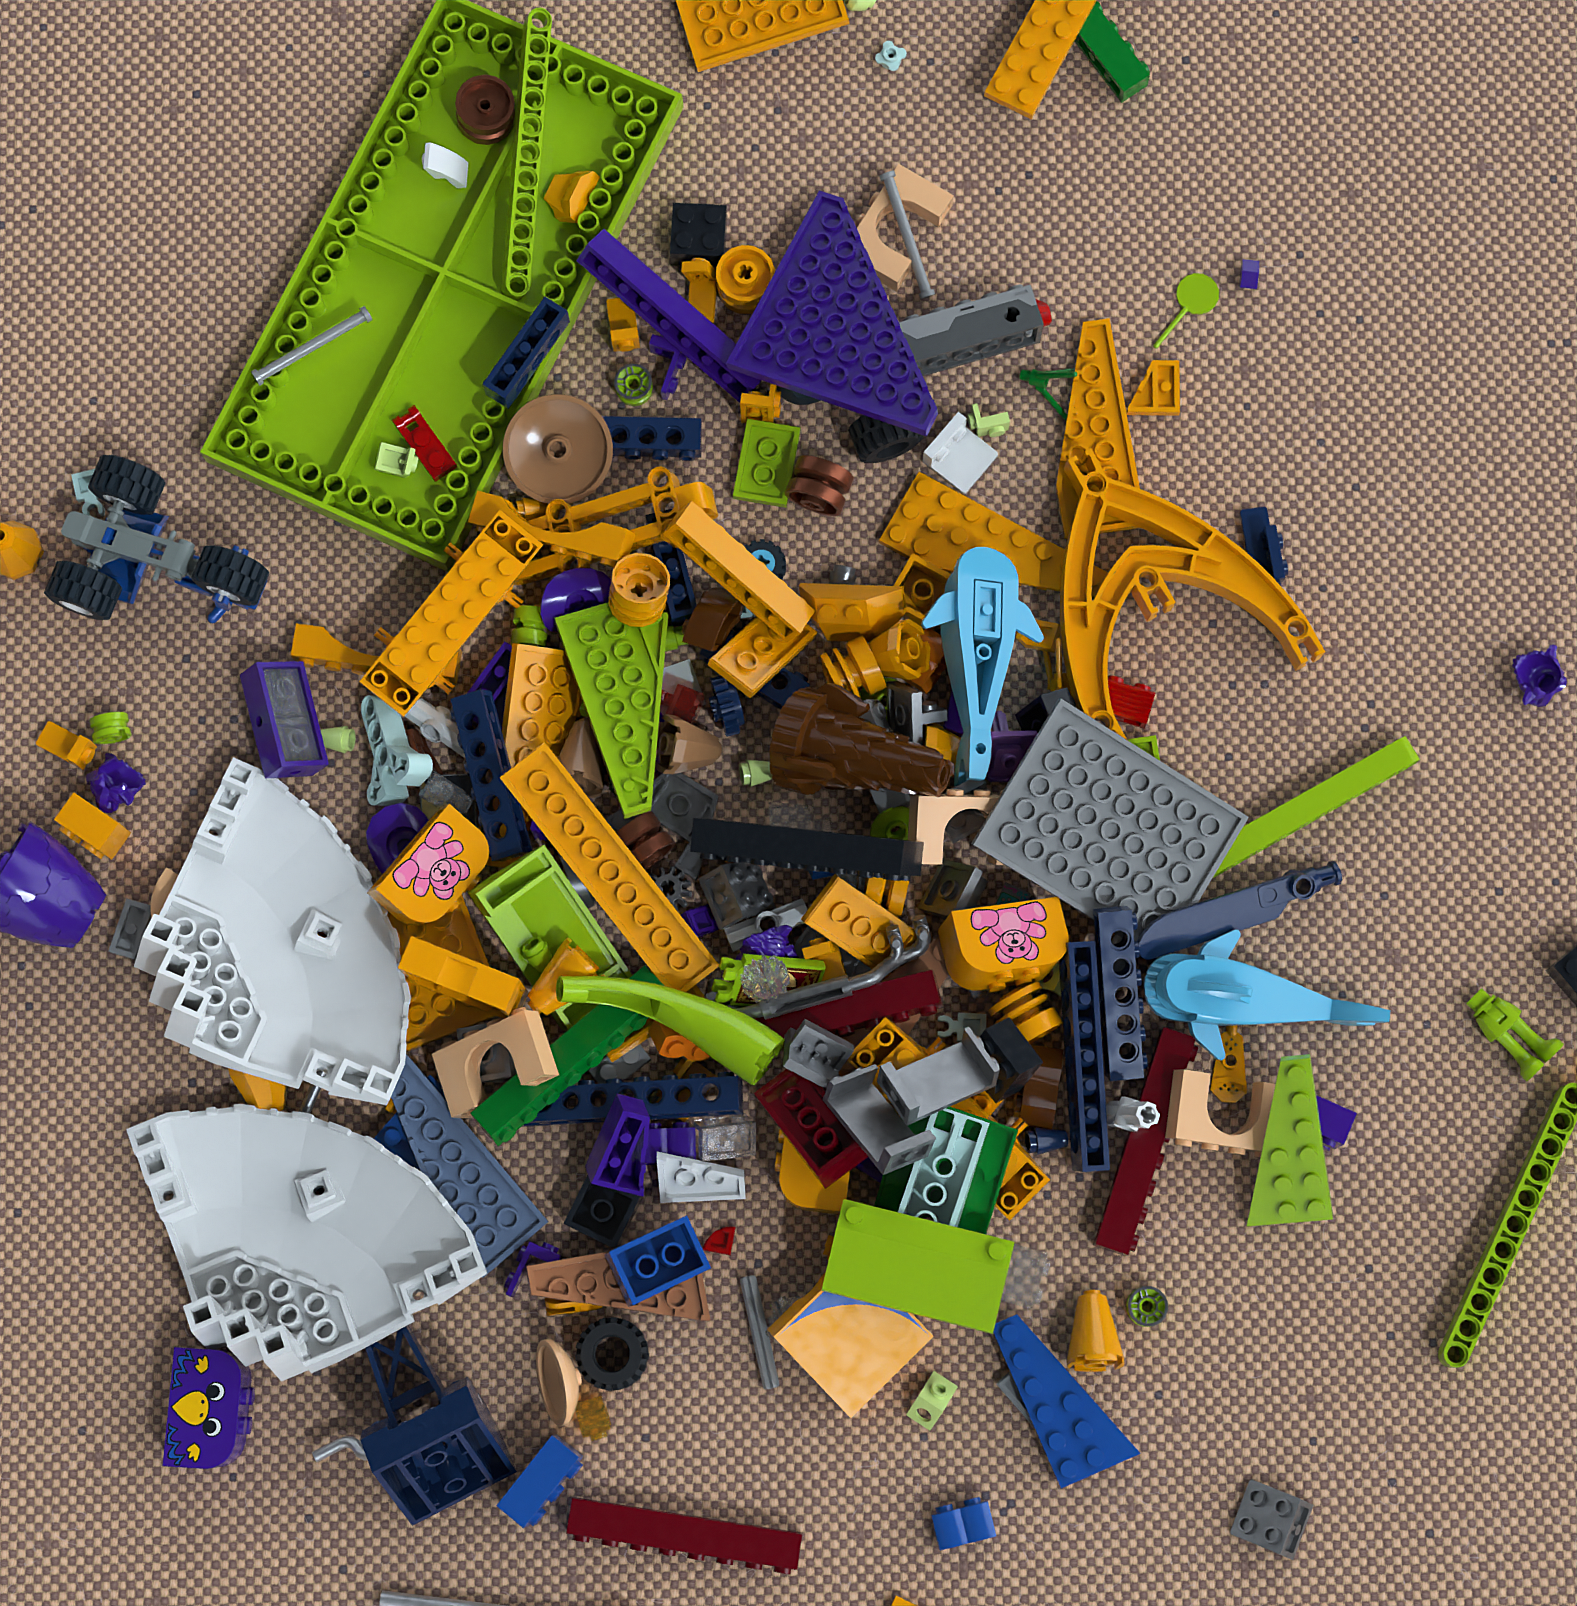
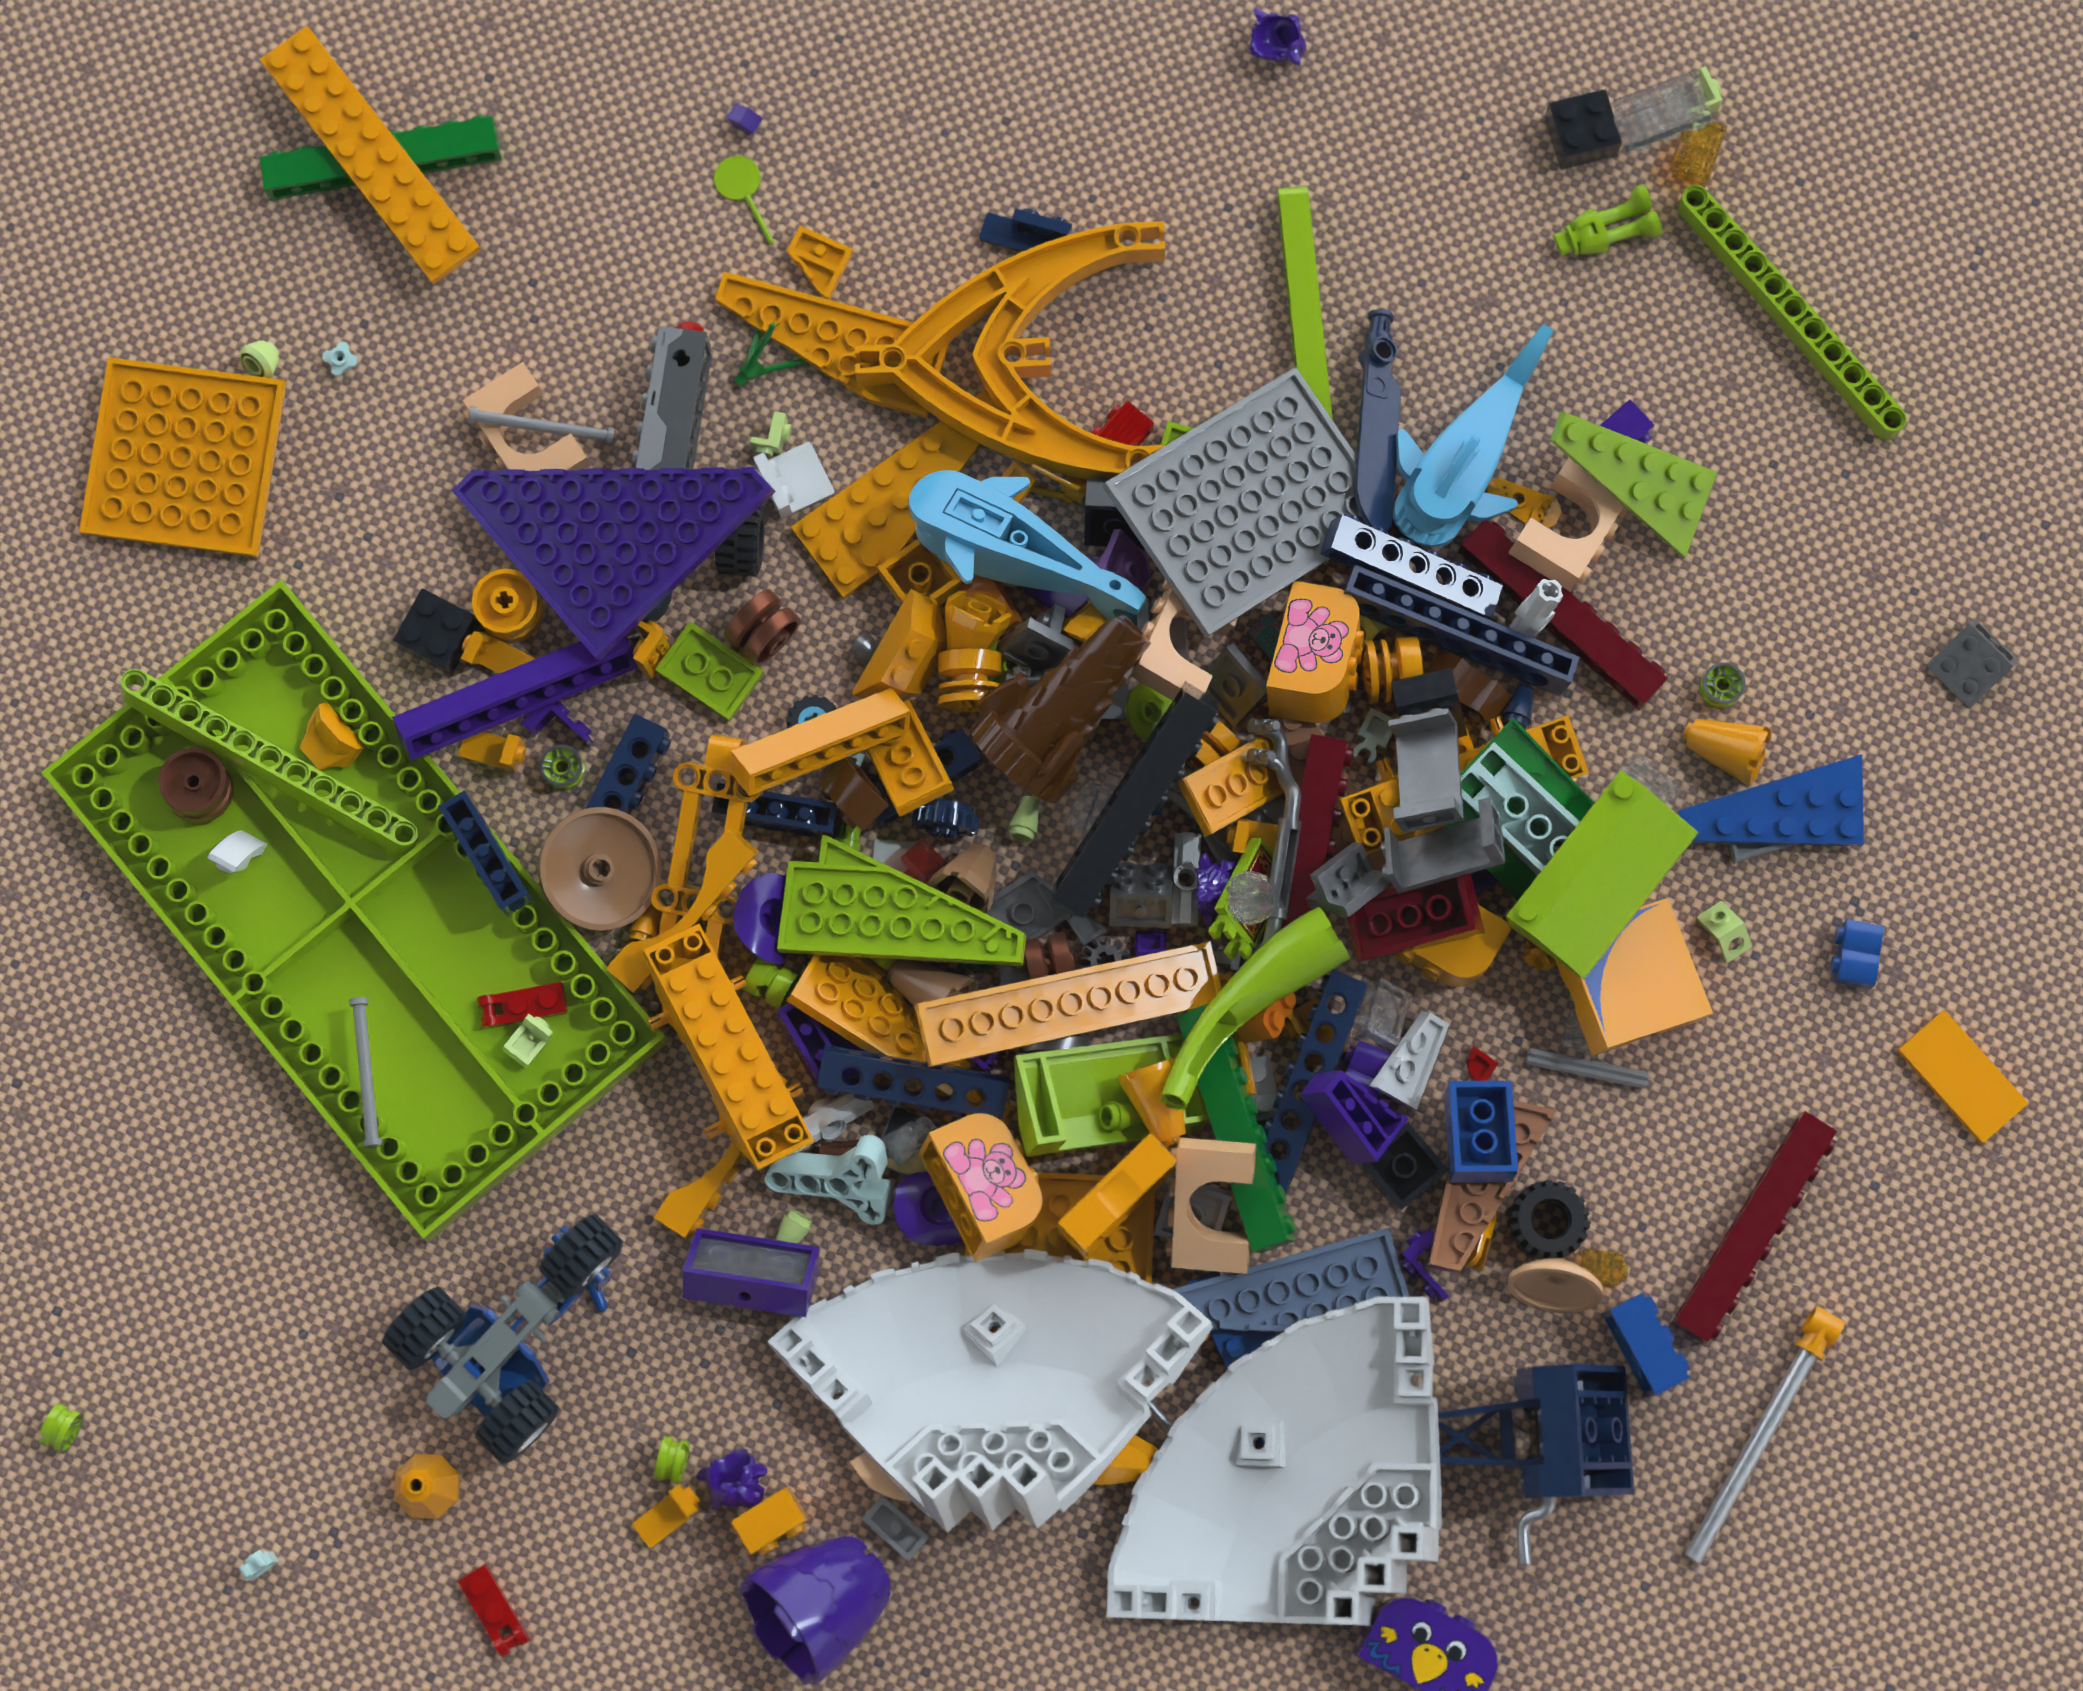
camera: 65 degrees left, 0 degrees up
(83, 494) = (399, 1379): light aqua plate -> none
(639, 589) = (791, 849): light orange wheel -> none

